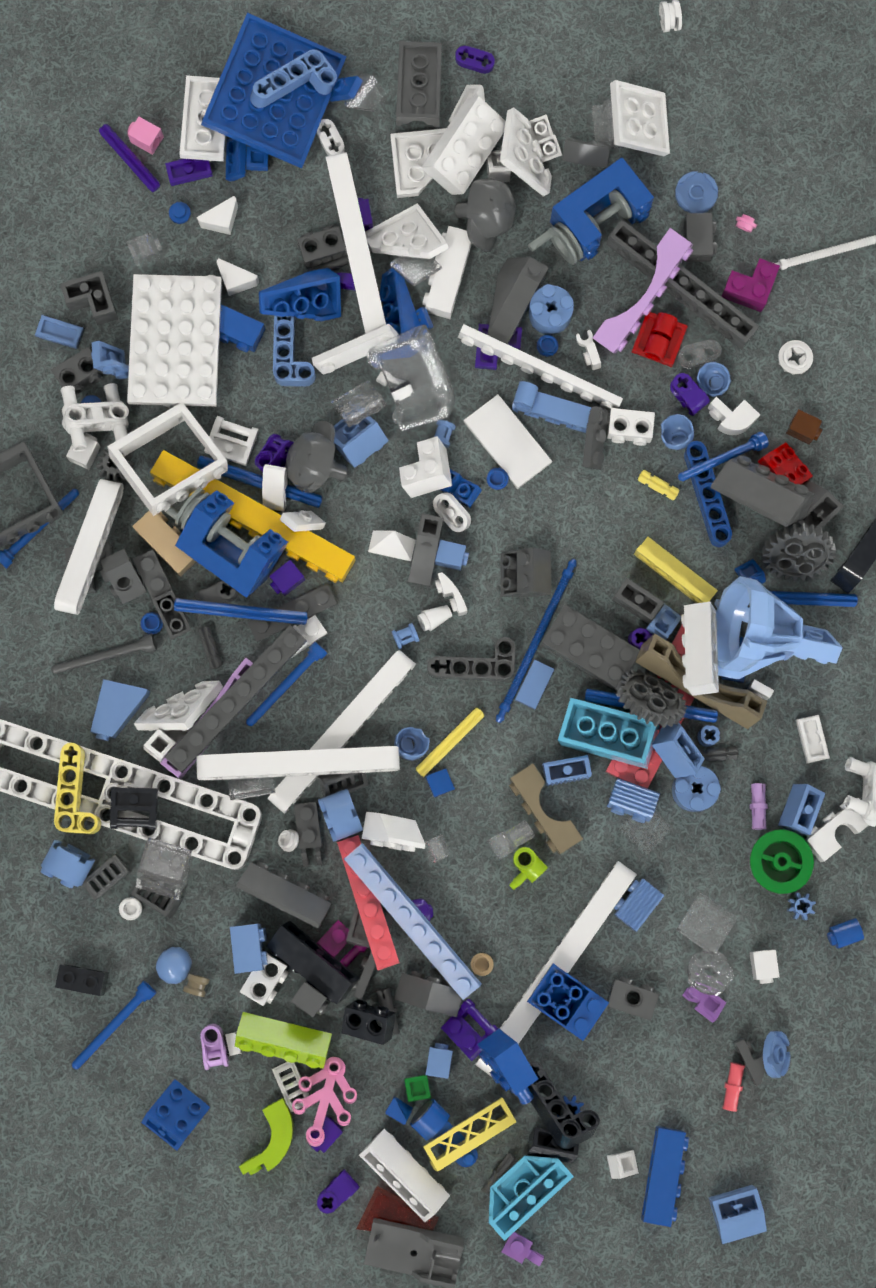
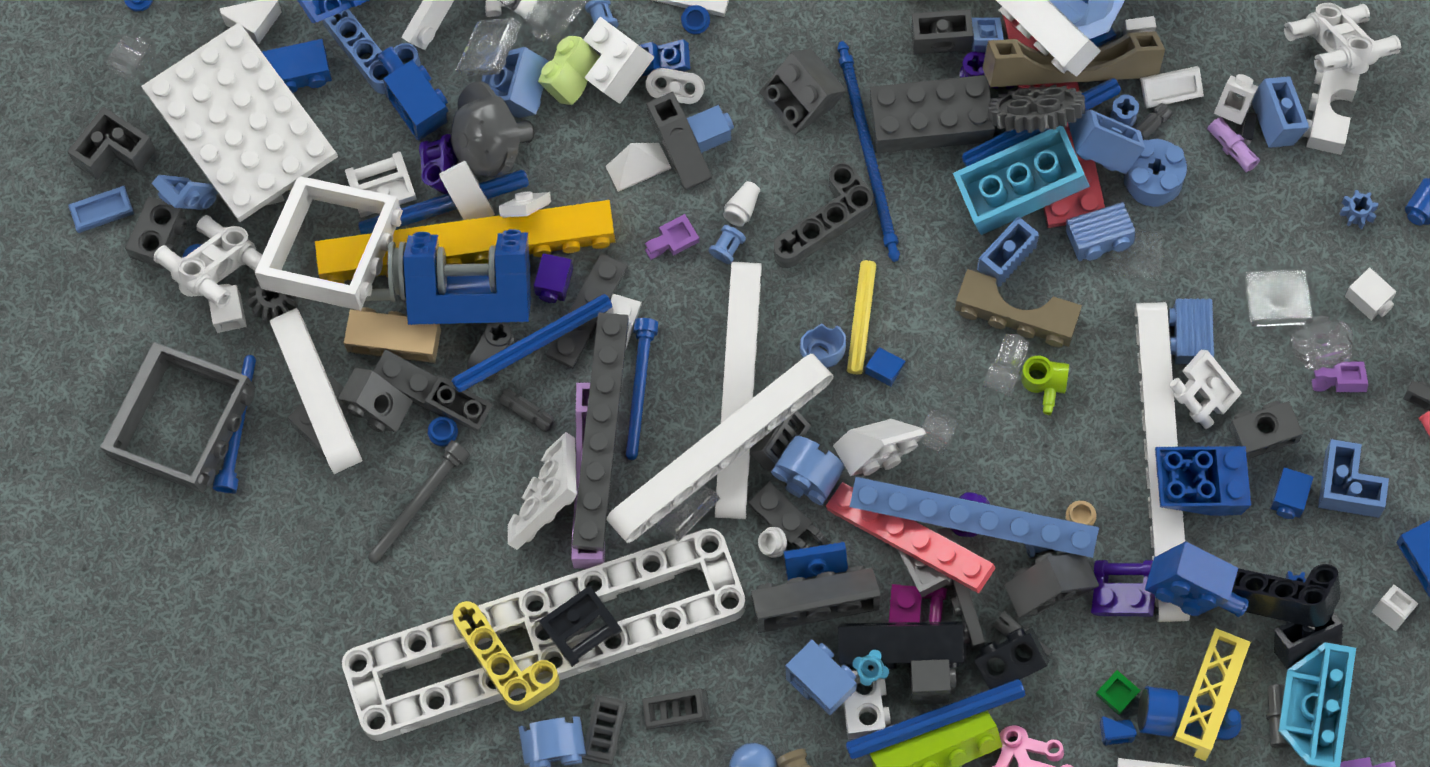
camera: 30 degrees left, 10 degrees down
(116, 708) = (475, 543): medium blue slope -> none
(130, 908) = (658, 743): white tile -> none
(162, 742) = (557, 538): white brick -> none
(164, 869) = (663, 666): clear slope -> none
(275, 967) = (868, 676): none -> medium azure plate
(289, 400) = (413, 95): none -> blue brick
(294, 1023) = (935, 719): none -> blue axle
(304, 871) = (816, 560): none -> blue plate
(380, 607) = (675, 236): none -> medium lavender plate
(395, 454) = (567, 71): none -> yellowish green brick
(439, 1061) = (1118, 646): medium blue brick -> none
(446, 586) = (733, 163): white slope -> none
(534, 684) = (902, 195): medium blue tile -> none
(615, 1050) = (1291, 493): none -> blue brick
(622, 943) = (1211, 382): none -> white plate
(649, 1068) = (1345, 488): none -> medium blue brick
(750, 741) = (1172, 87): none -> white tile
(776, 803) = (1248, 127): none -> black piece
(781, 861) = (1302, 175): green piece -> none
(785, 779) = (1232, 106): none -> white brick
(812, 739) = (1232, 38): white plate -> none

